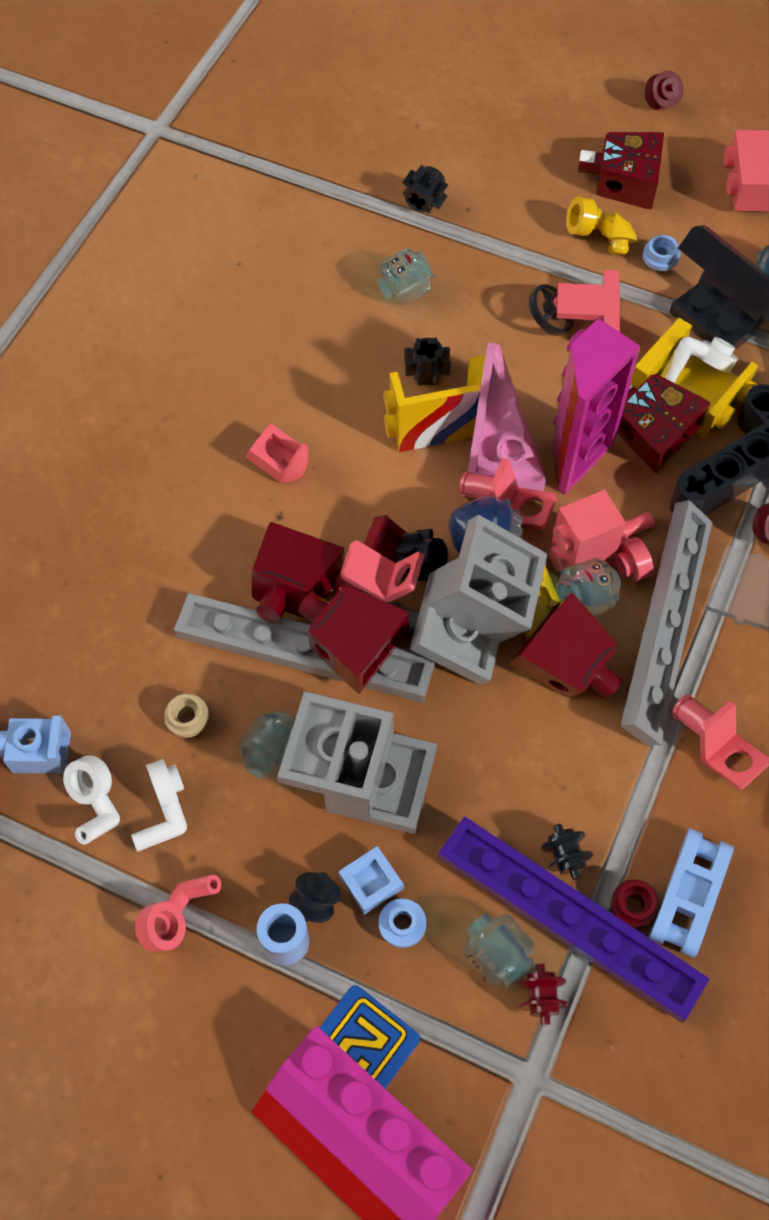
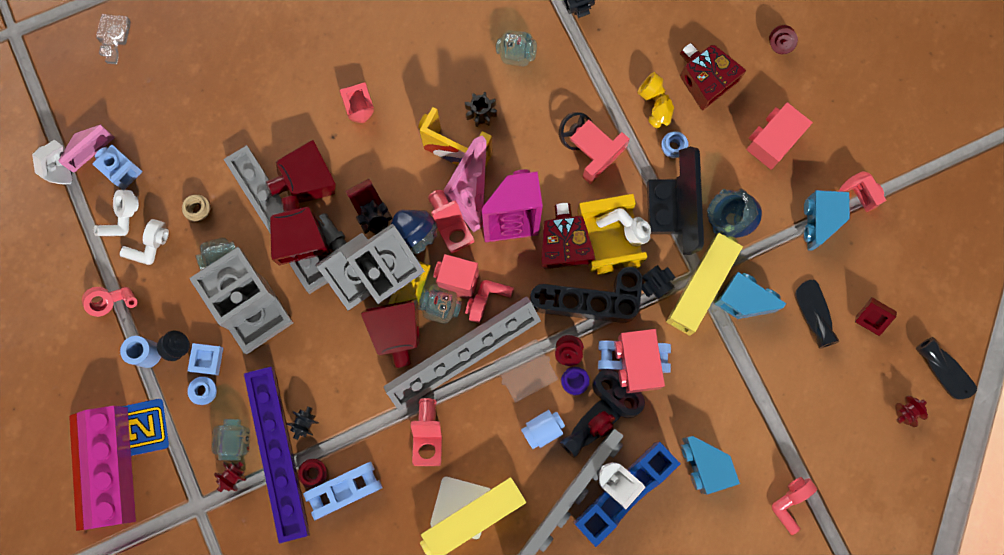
camera: 40 degrees right, 15 degrees up
(376, 574) = (337, 210): coral bracket -> none

